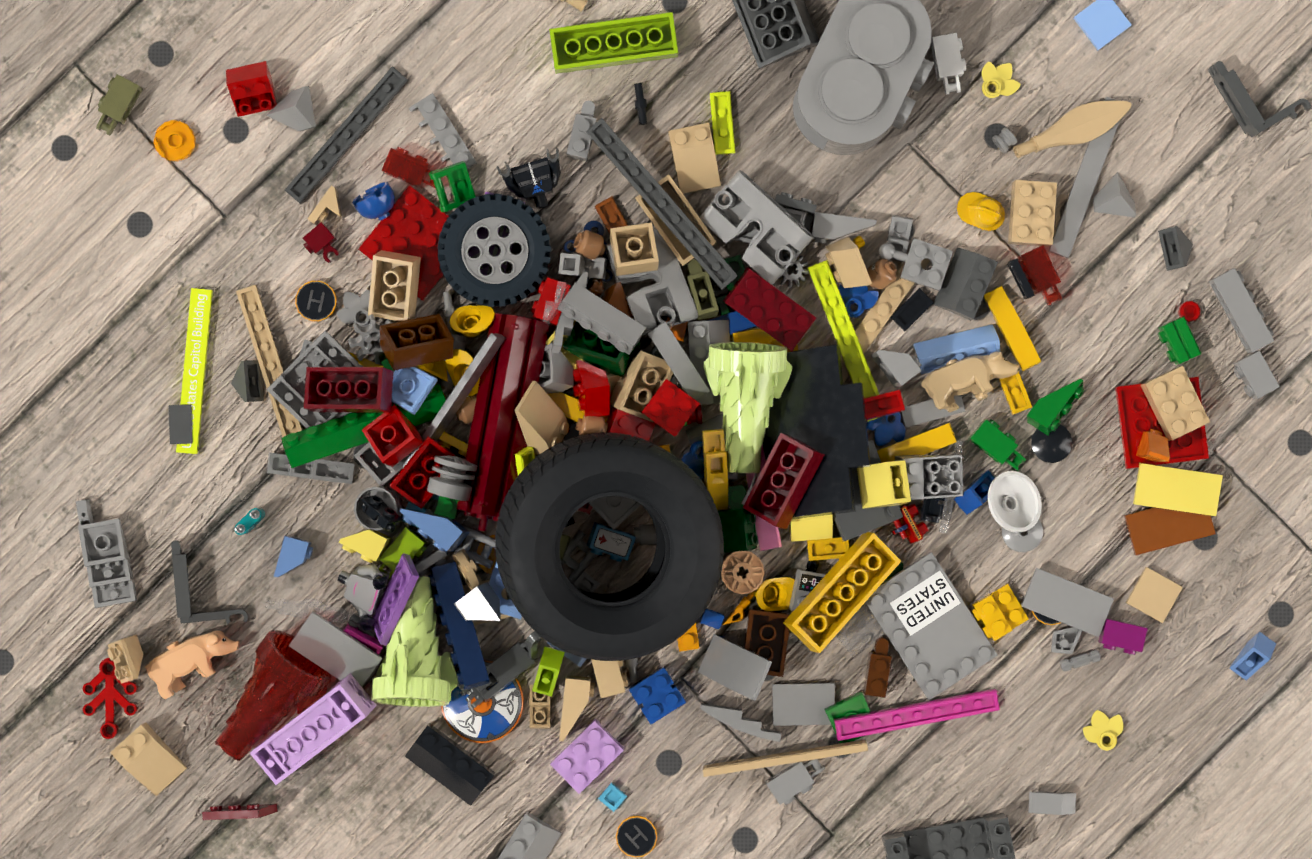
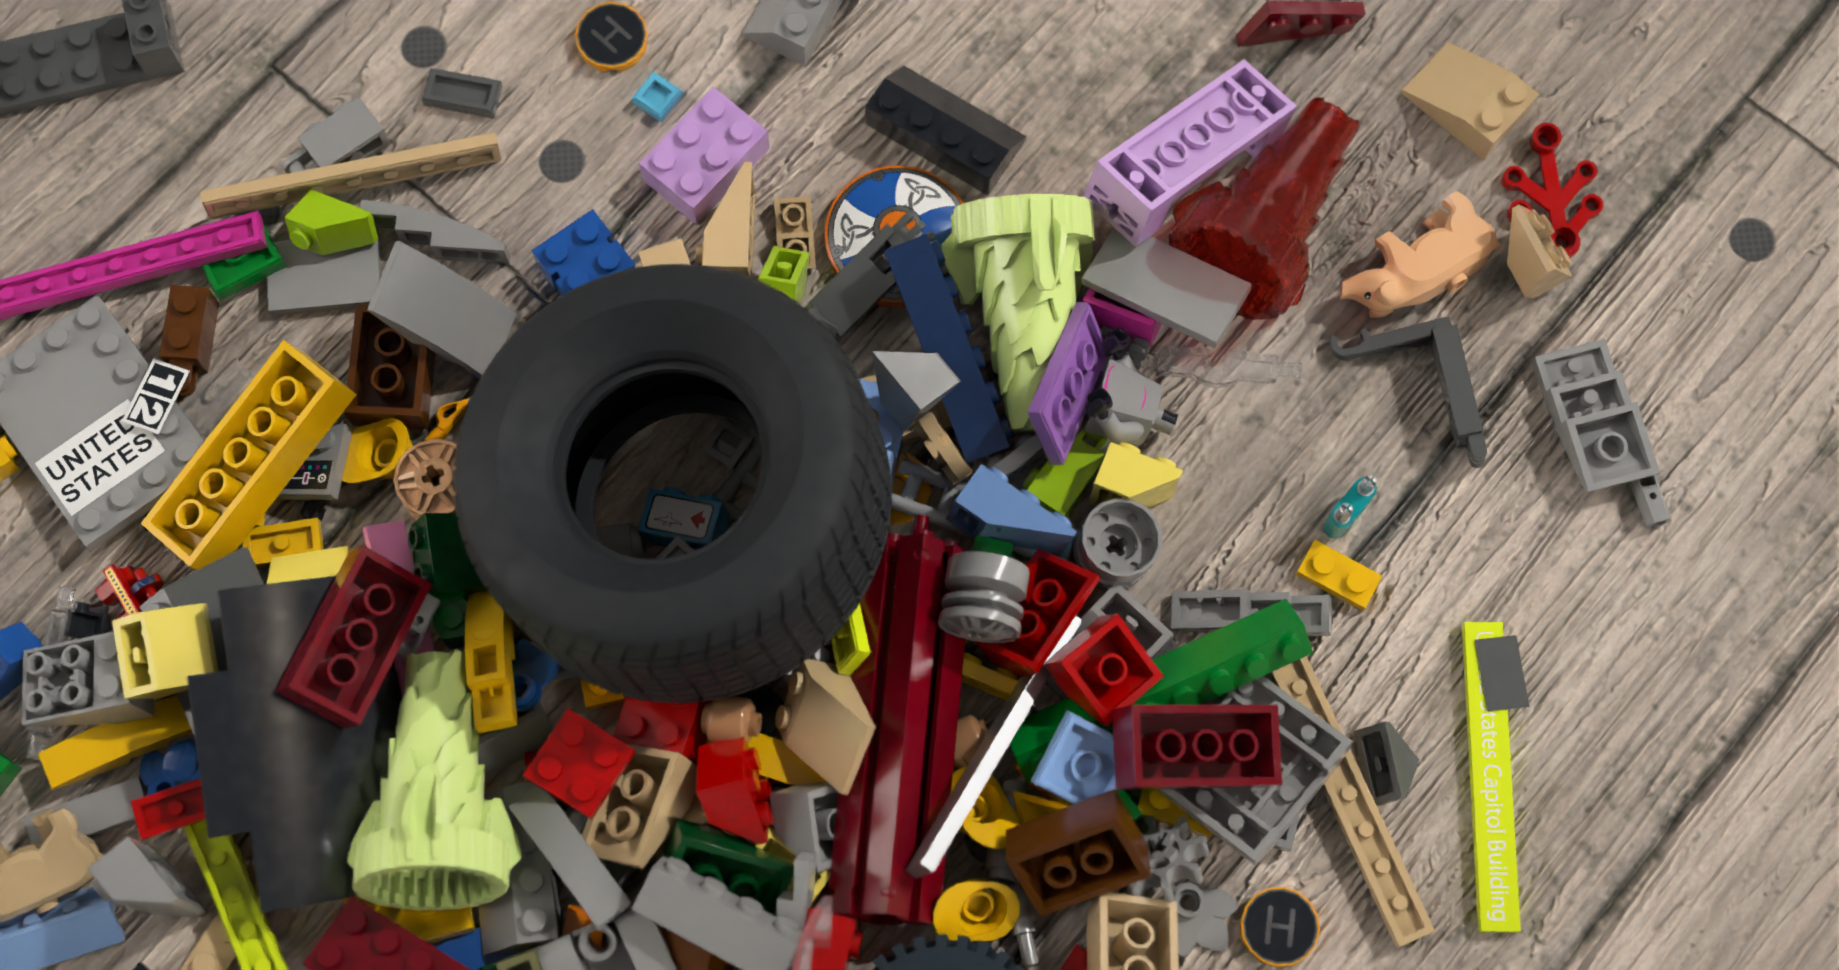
camera: 175 degrees right, 15 degrees down
(260, 486) = (1338, 575): none -> yellow plate
(292, 554) = (1263, 456): medium blue slope -> none
(374, 507) = (1117, 536): black hinge -> none
(723, 808) = (462, 93): none -> dark grey tile
(798, 728) = (329, 224): none -> lime slope
(894, 634) = (155, 396): none -> sticker

